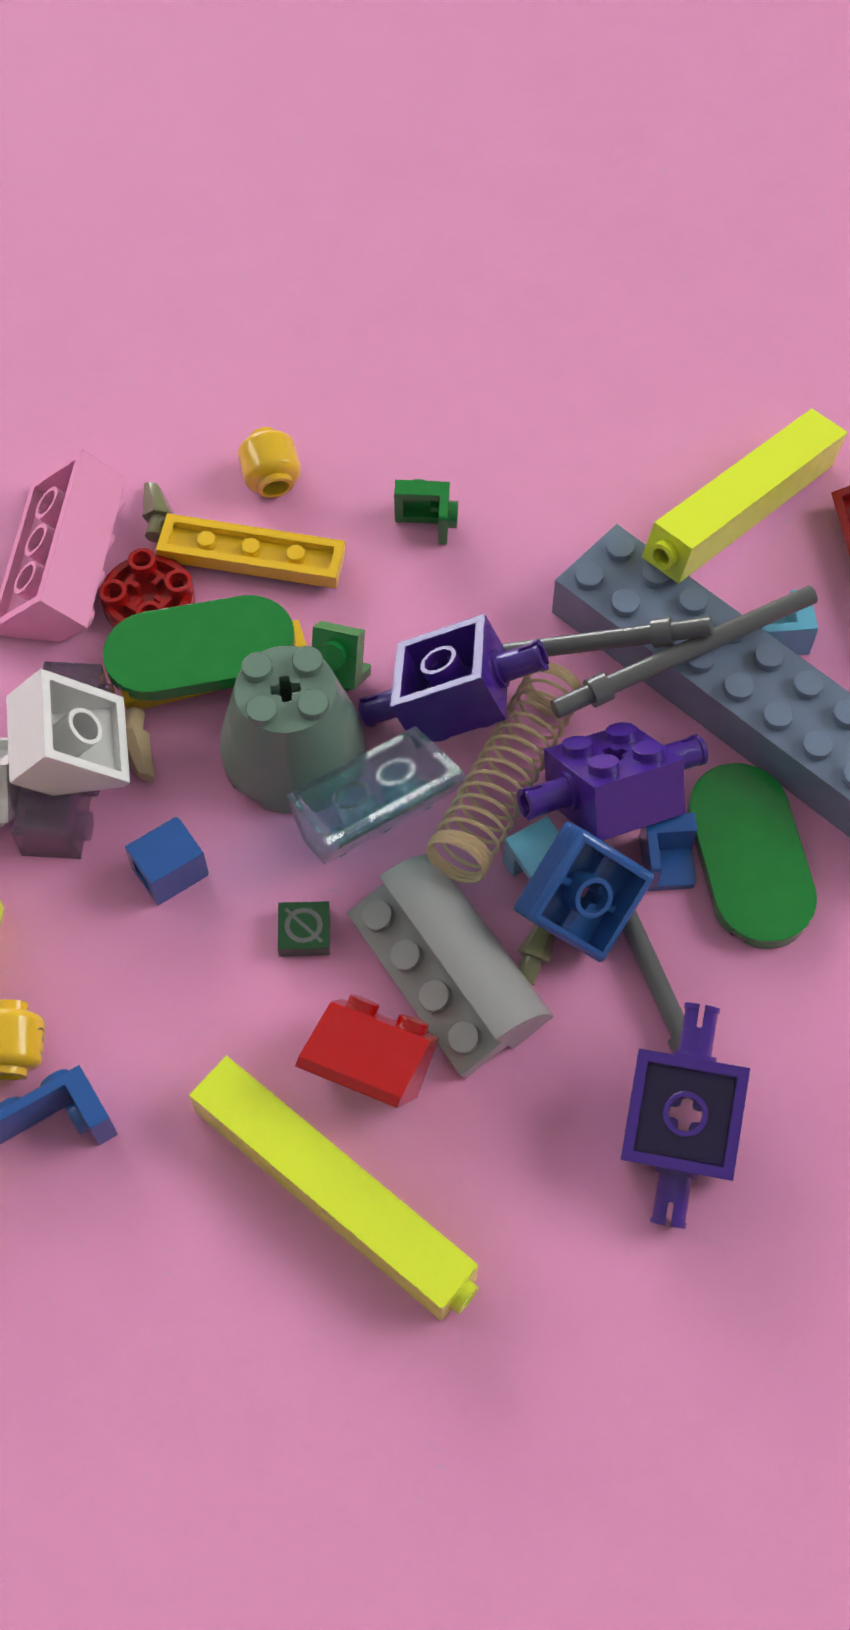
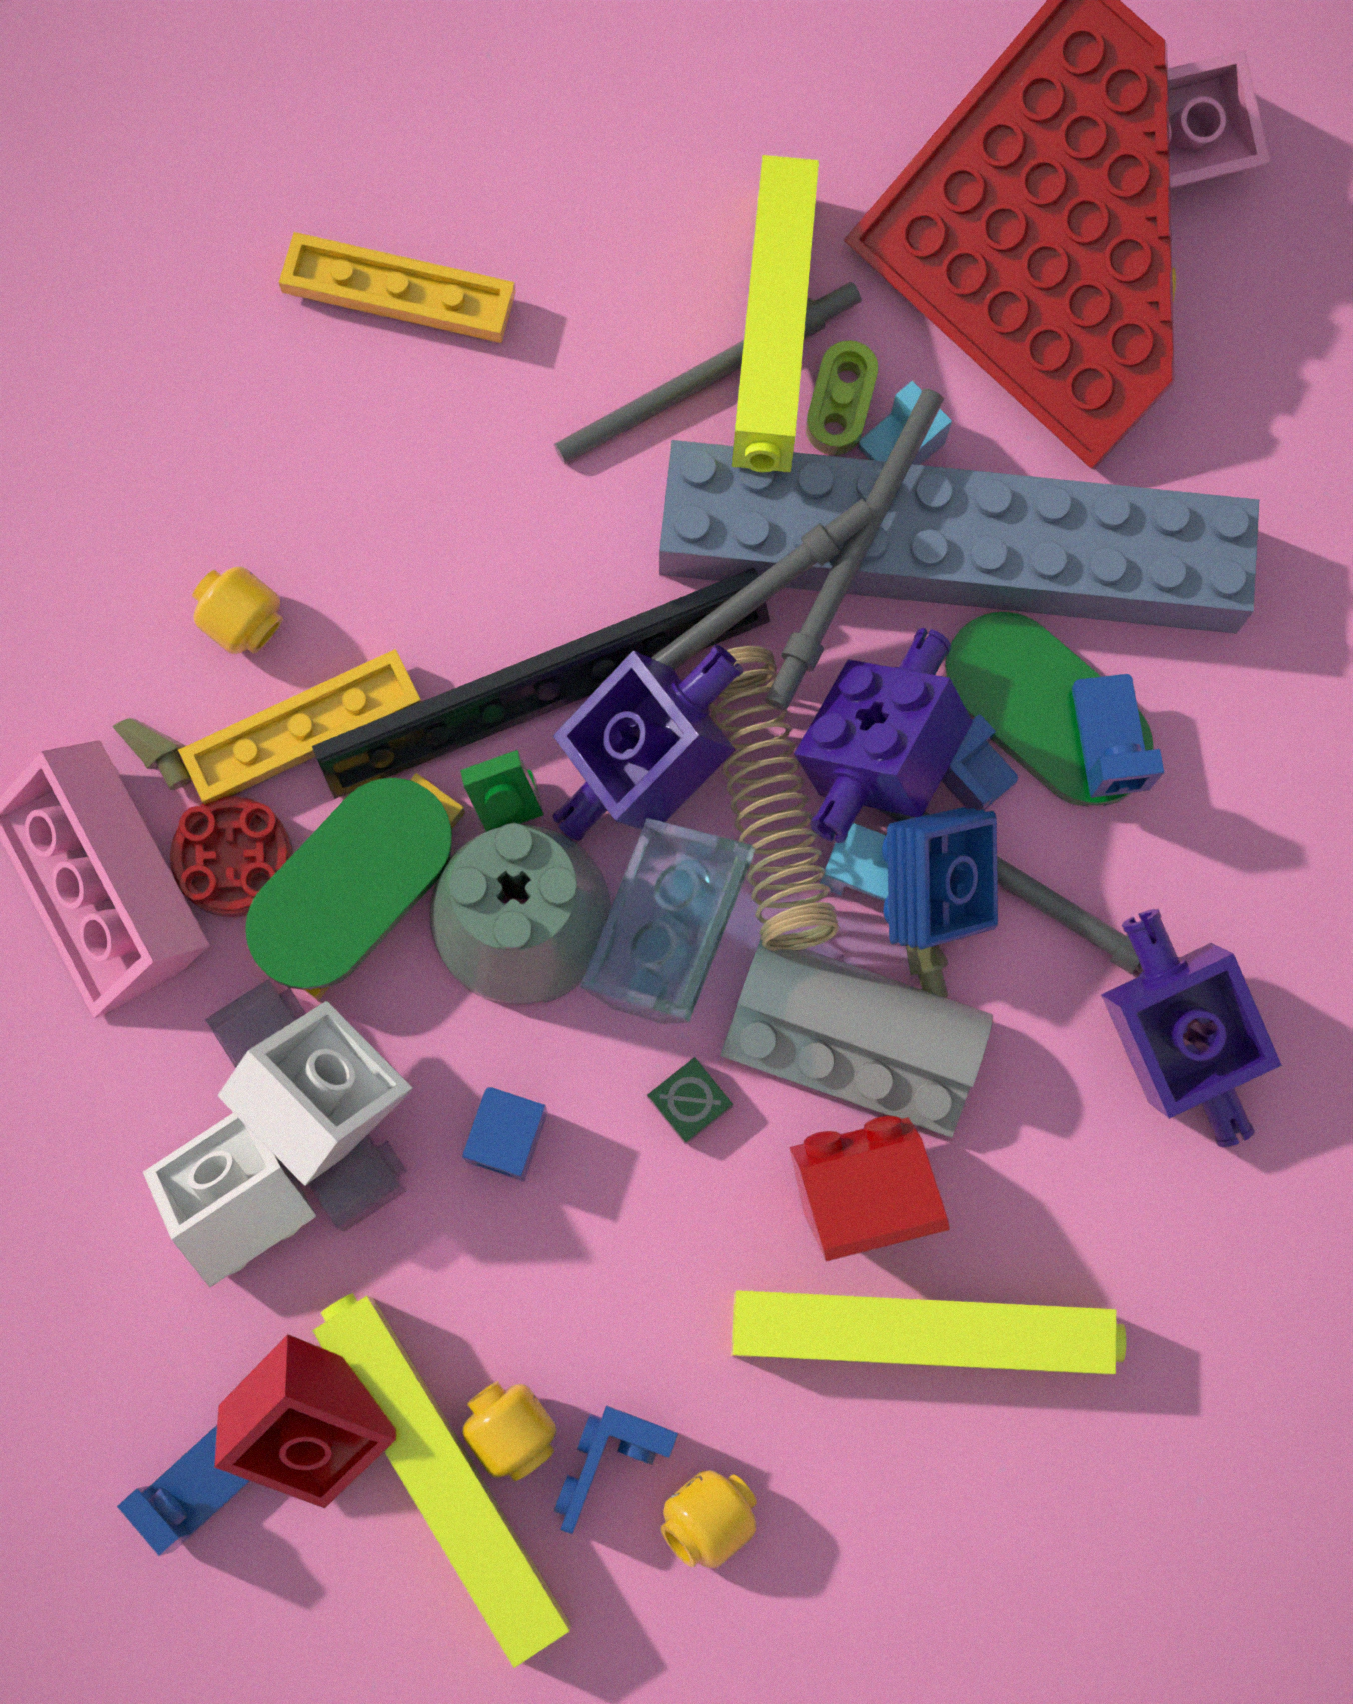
camera: 40 degrees left, 15 degrees up
(85, 1197) = (709, 1519): none -> yellow head
(139, 745) = (369, 1029): tan bar -> none
(397, 611) = (518, 691): none -> black tile
(426, 503) = (437, 541): green bracket -> none
(520, 356) = (397, 287): none -> yellow plate
(751, 579) = (839, 400): none -> lime plate
(769, 527) = (693, 381): none -> dark grey bar
(779, 891) = (1113, 737): none -> blue bracket

